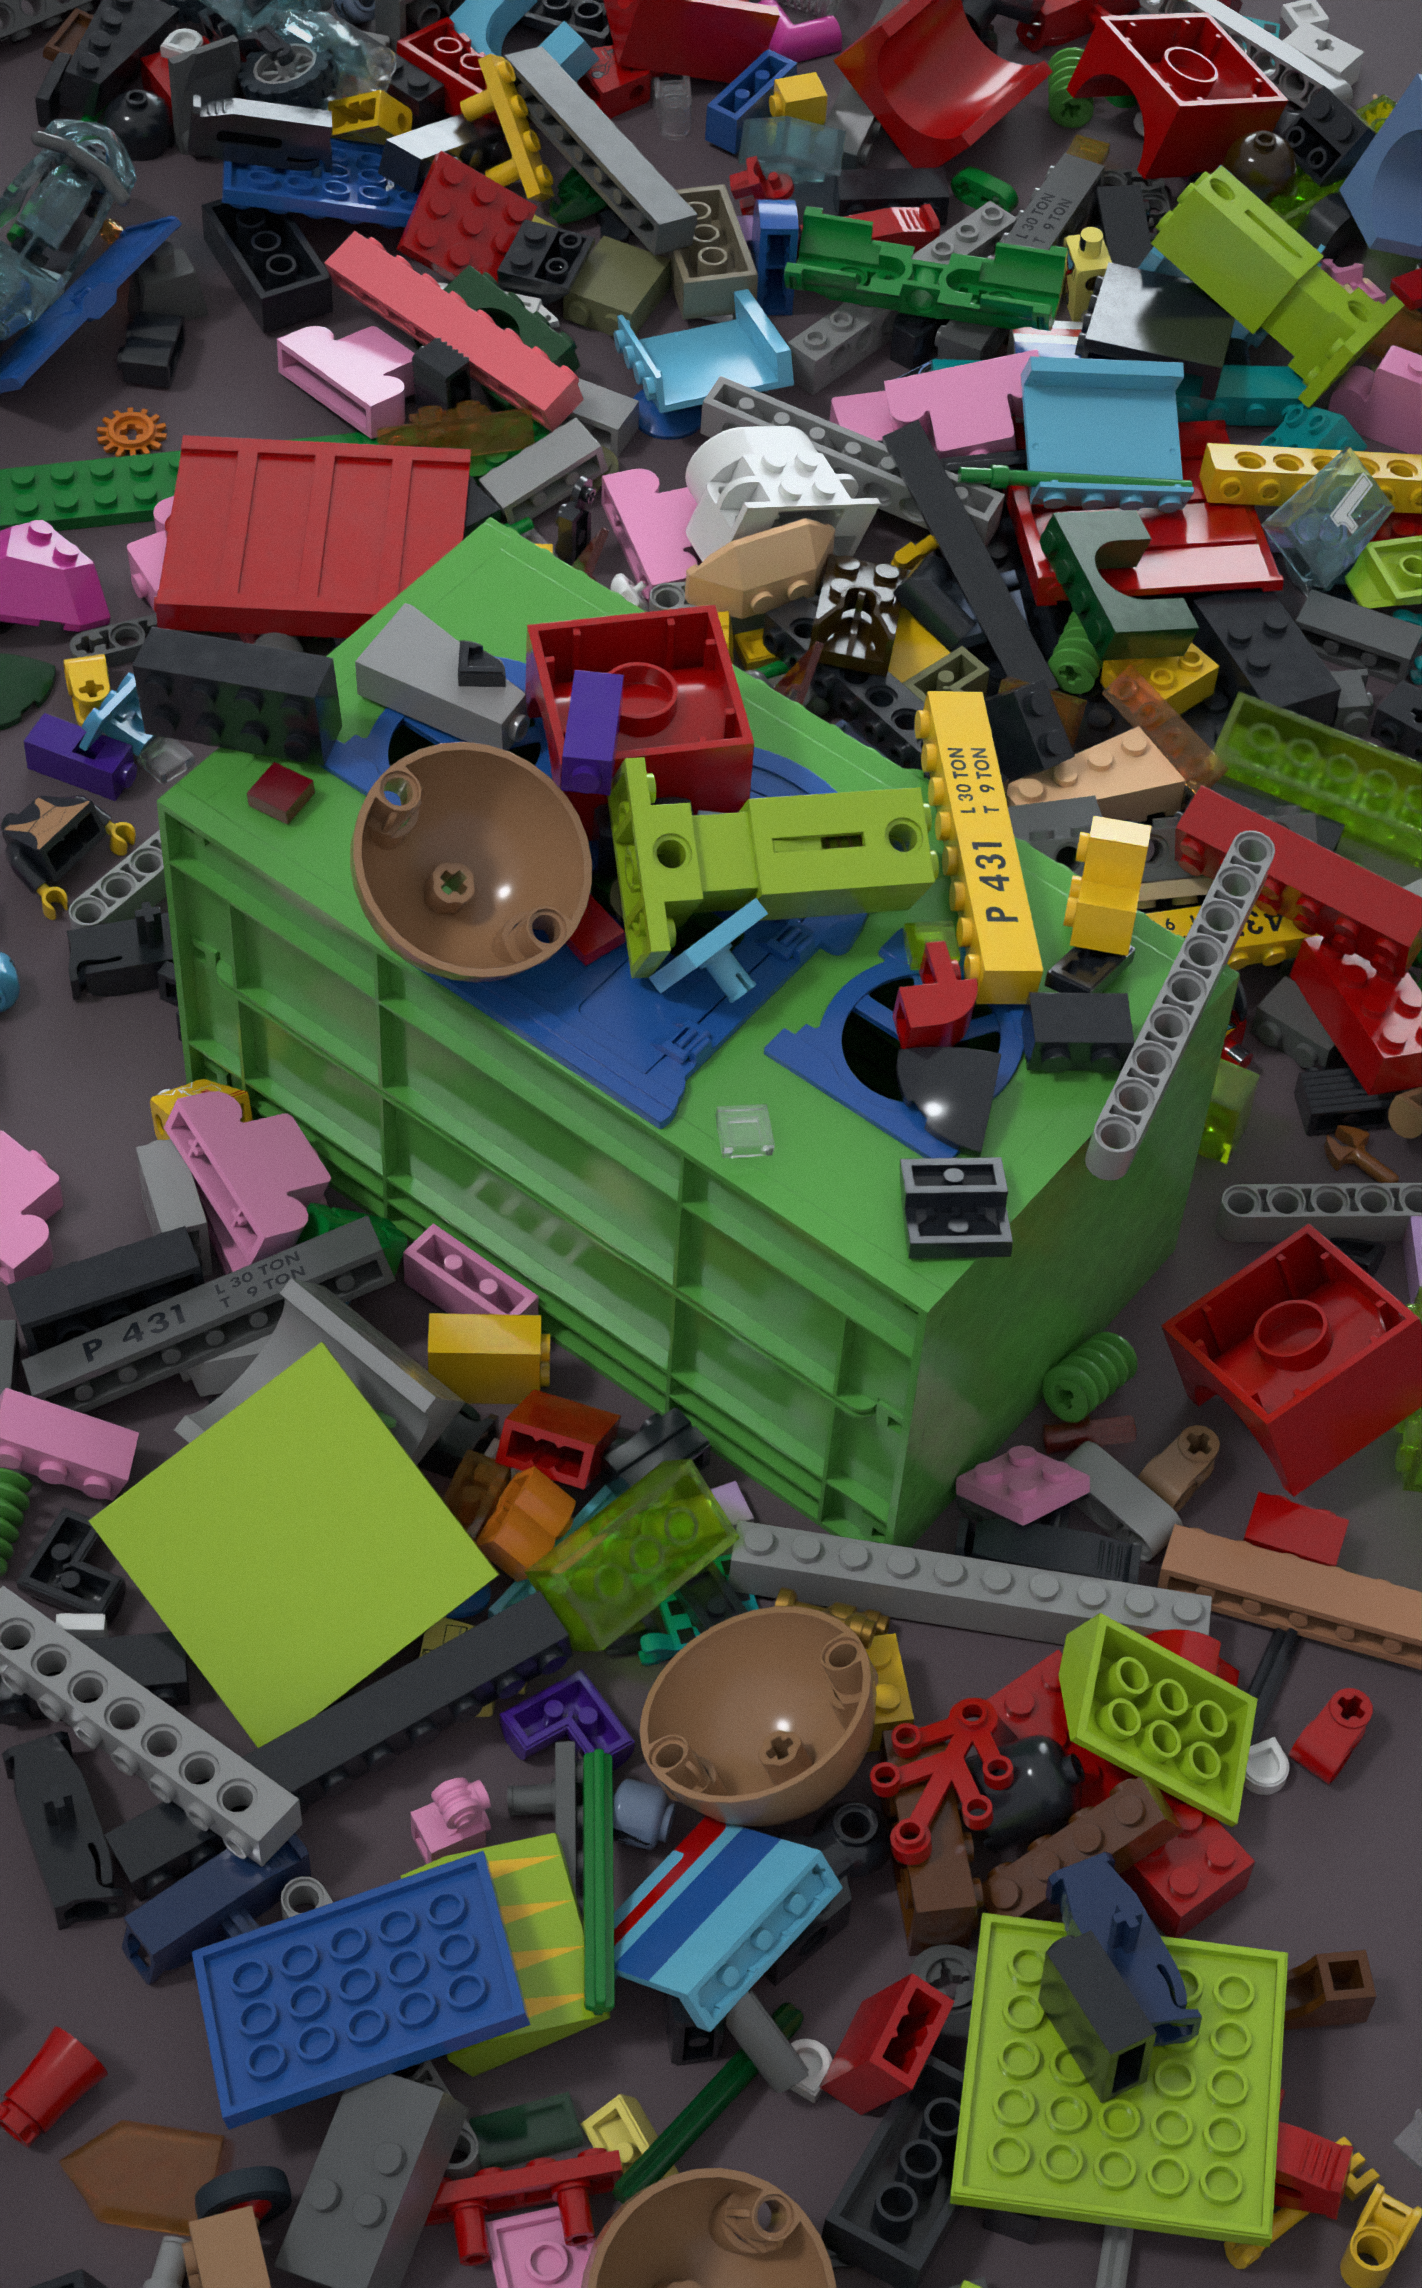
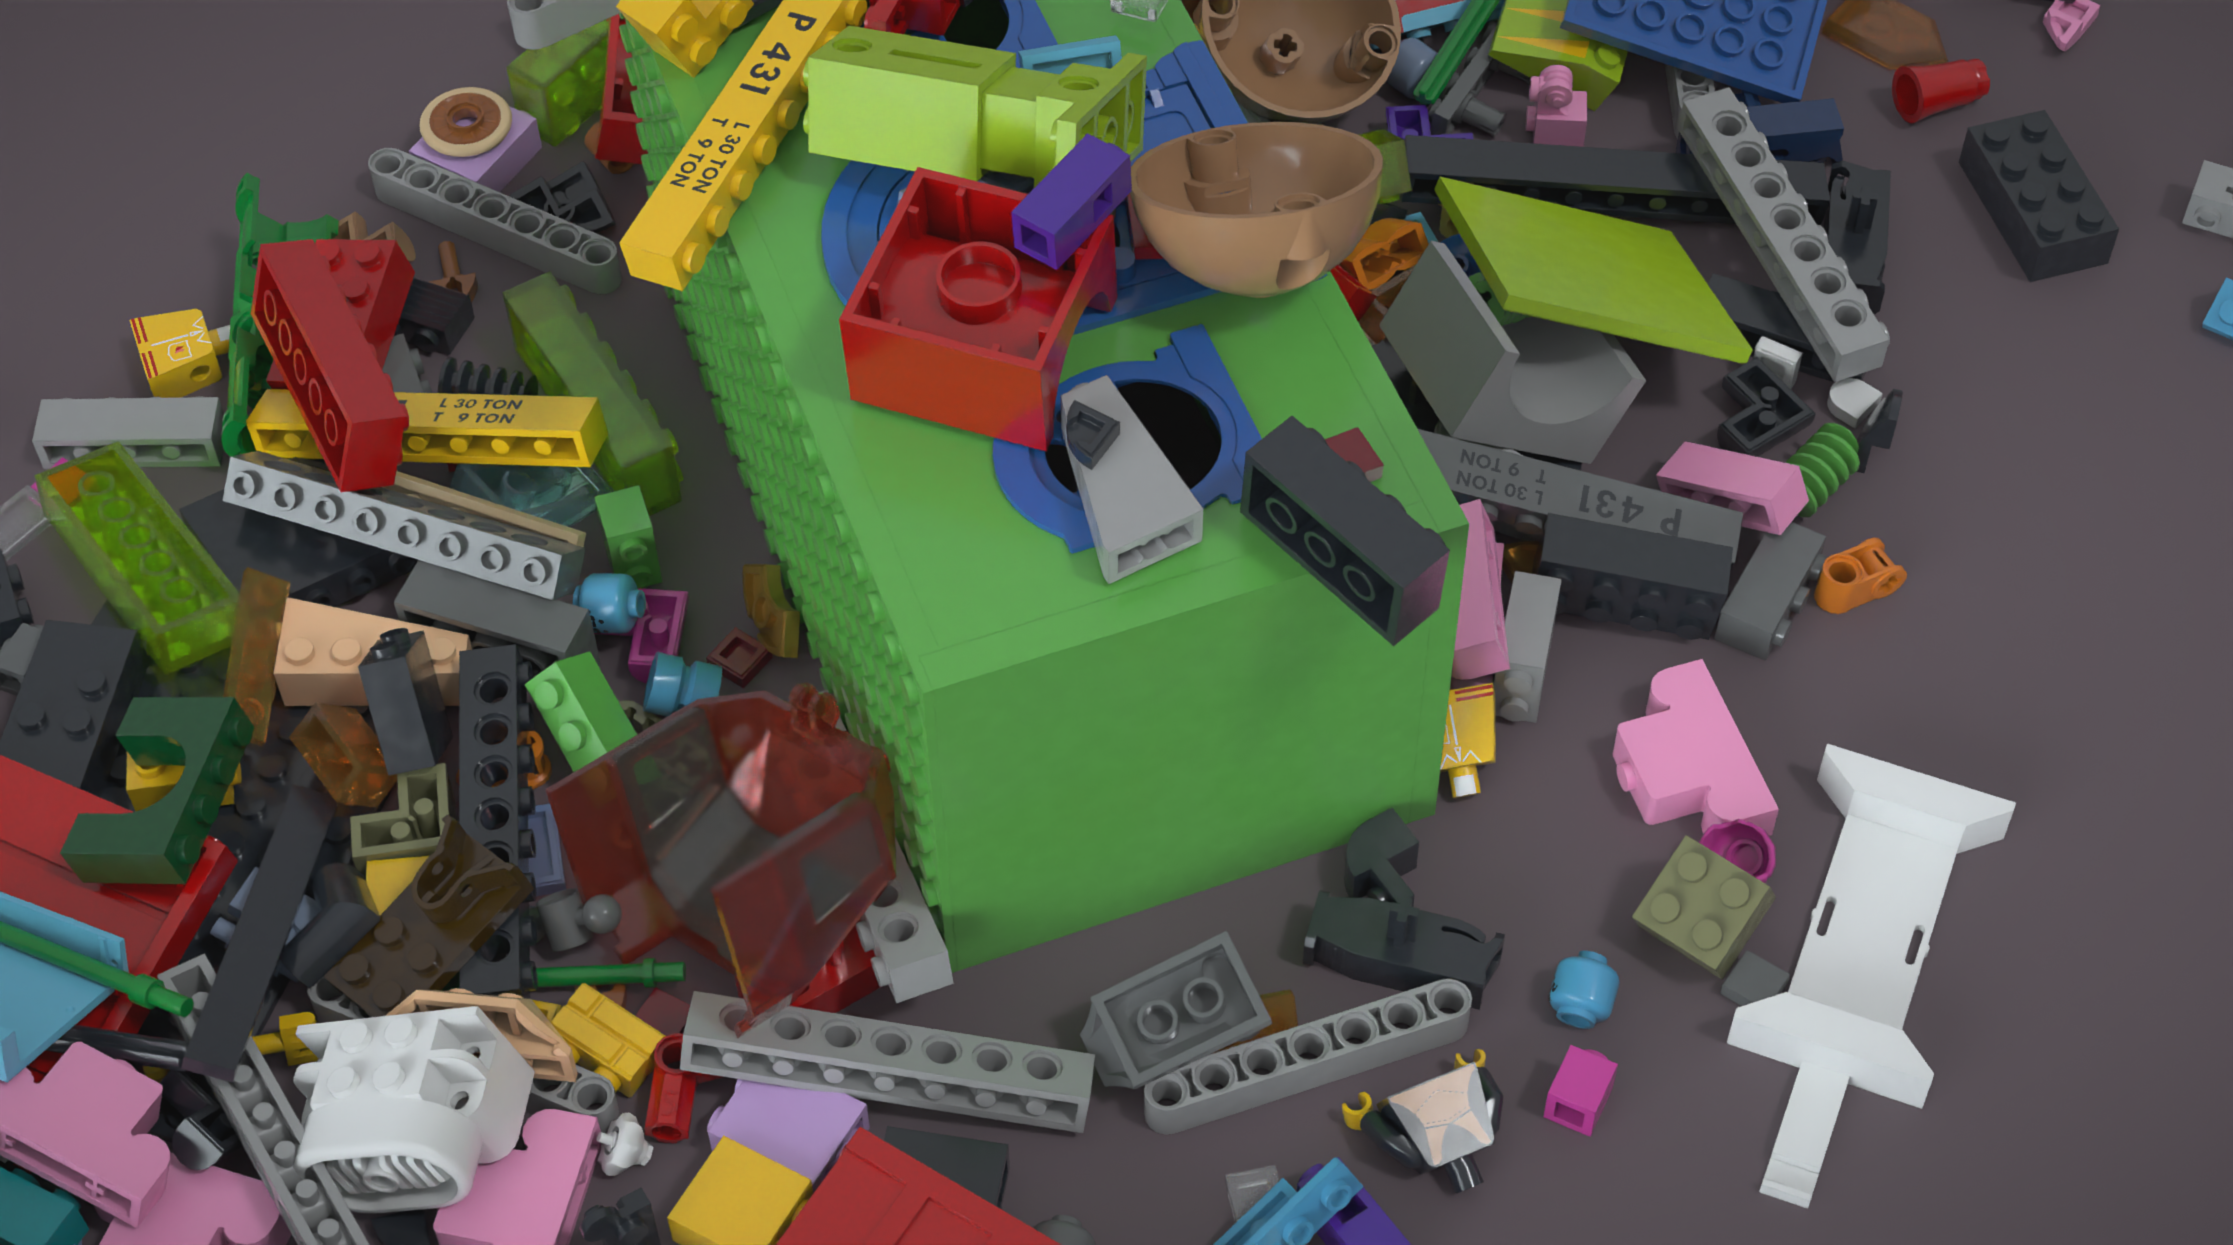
camera: 145 degrees left, 0 degrees up
(1075, 659) = (244, 807): bright green piece -> none

